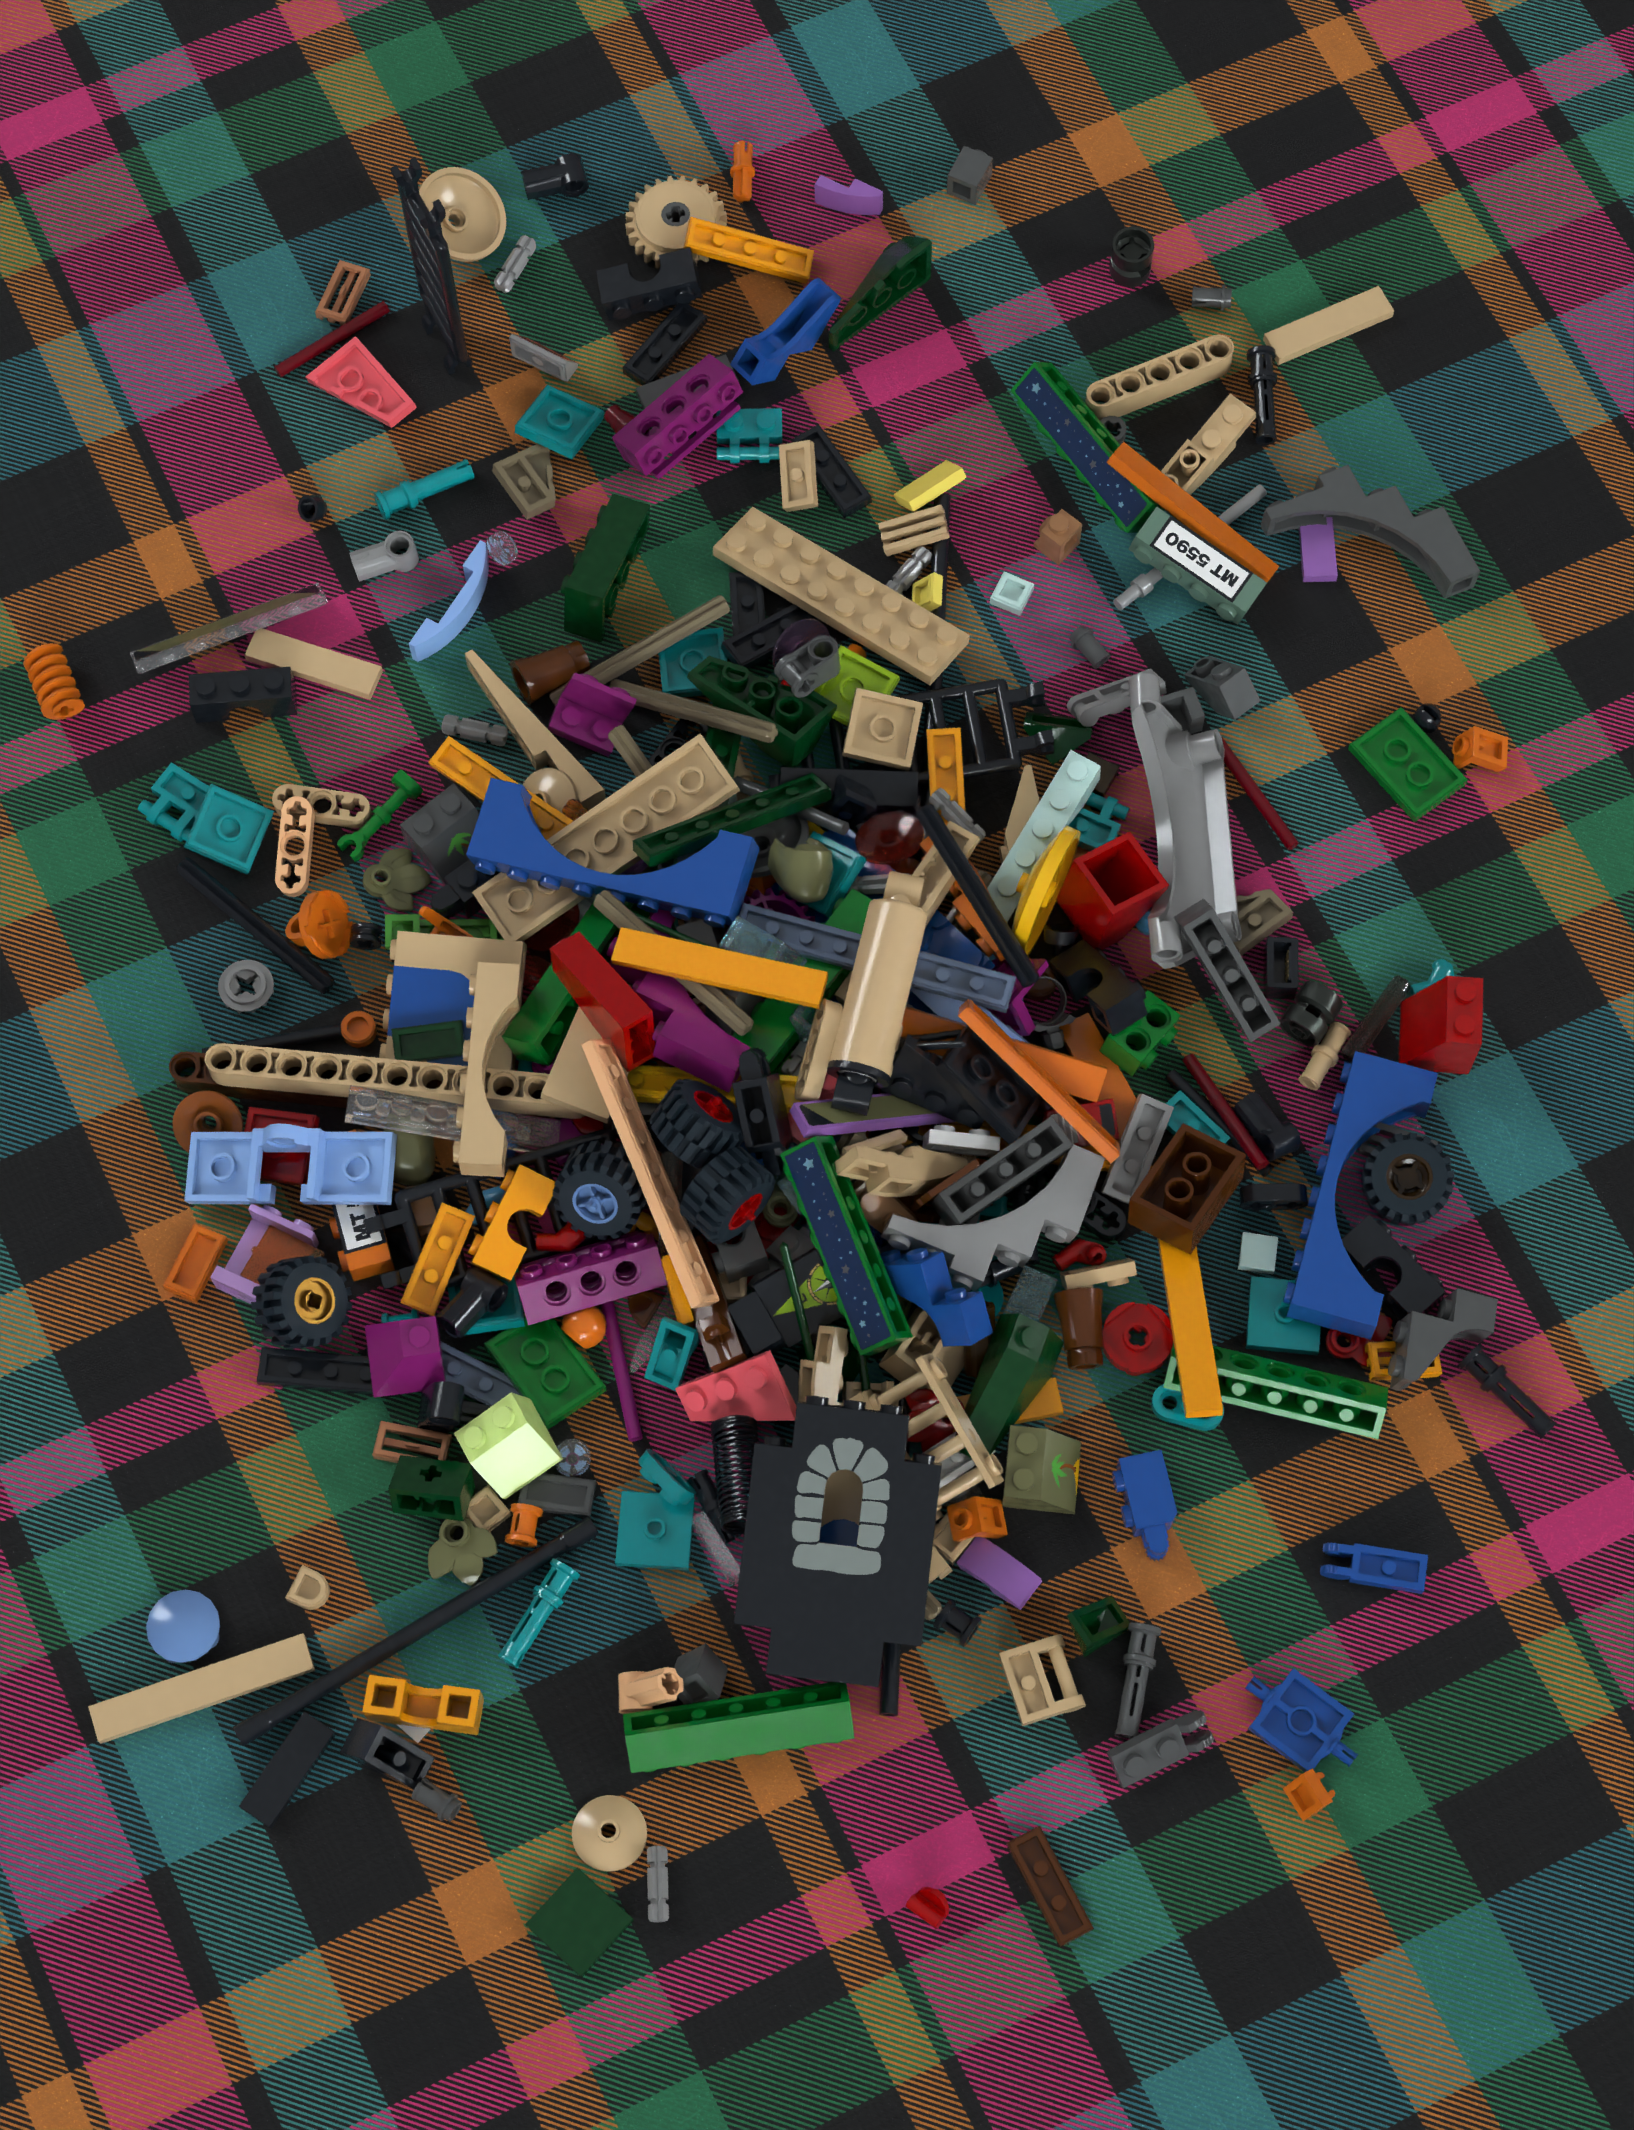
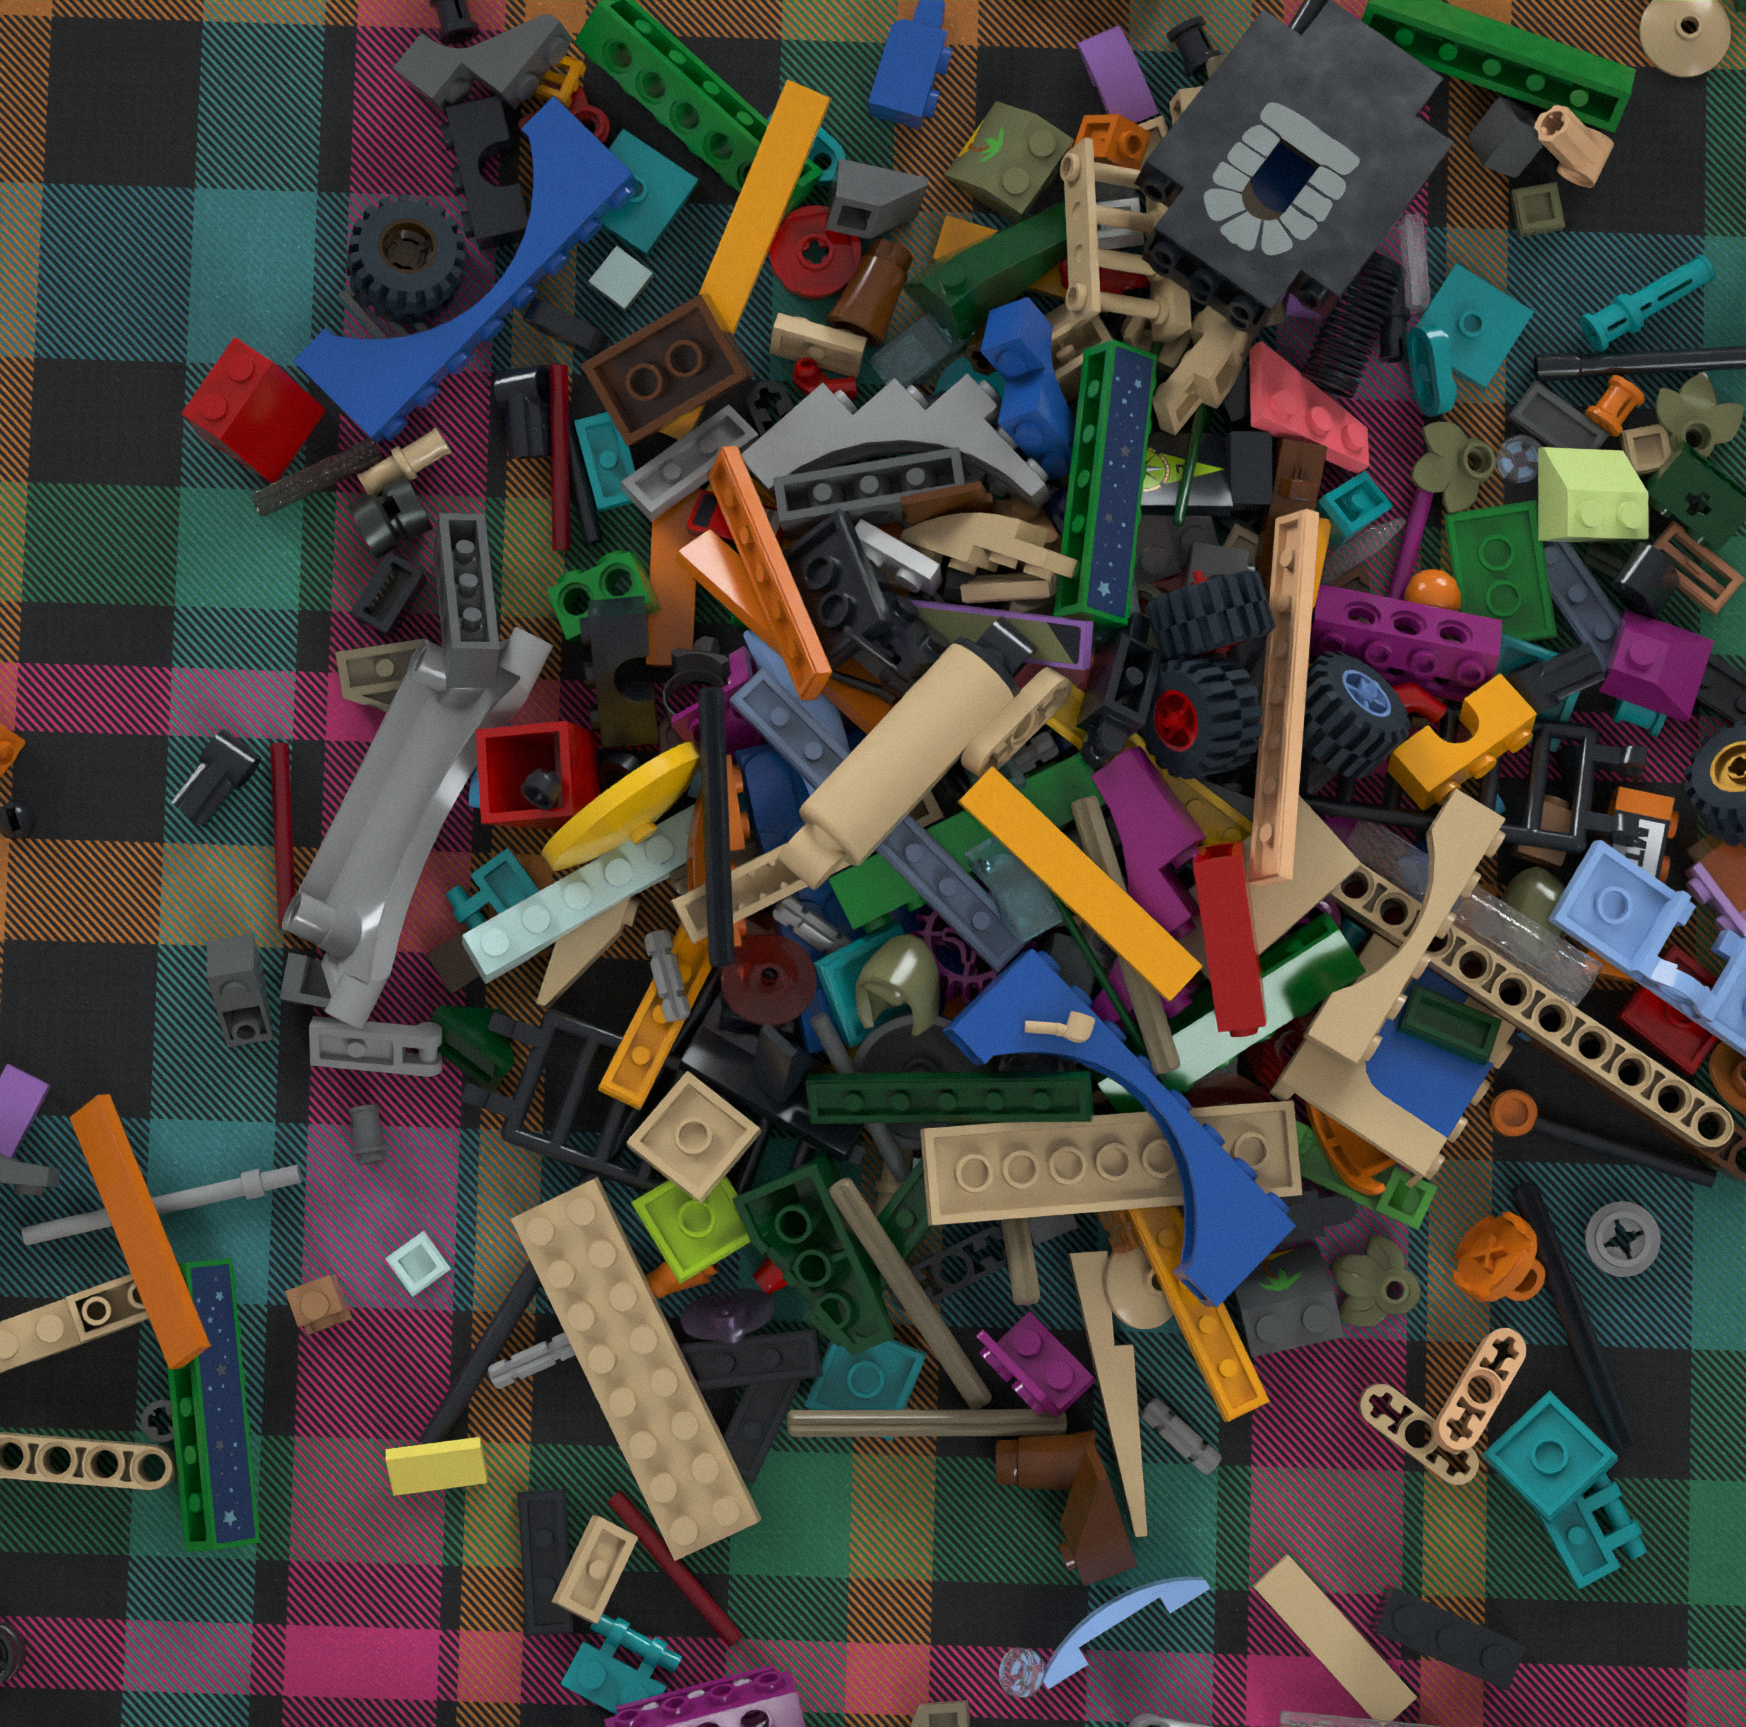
camera: 155 degrees left, 15 degrees up
(366, 936) = (1448, 1224): black bush -> none
(382, 815) = (1303, 1397): green piece -> none
(437, 1259) = (1568, 751): light orange tile -> none
(499, 641) = (1093, 1524): none -> reddish brown slope
(603, 566) = (905, 1574): dark green wedge -> none
(621, 1418) = (1447, 467): none -> olive plate
(650, 1641) = (1537, 209): none -> olive tile
(672, 878) = (1076, 1030): none -> tan hand
(747, 503) = (675, 1569): none -> dark red bar
(810, 665) = (743, 1262): dark grey piece -> none
(912, 526) = (529, 1424): tan tile -> none
(928, 591) = (526, 1313): light yellow tile -> none
(1102, 863) = (542, 788): none -> black hinge
(1119, 1385) = (872, 199): none -> dark grey slope
(1196, 566) = (175, 1161): brick -> none
(1318, 806) = (223, 767): none -> black piece
(1407, 764) = (78, 774): green tile -> none
(1441, 969) = (218, 481): teal arm -> none

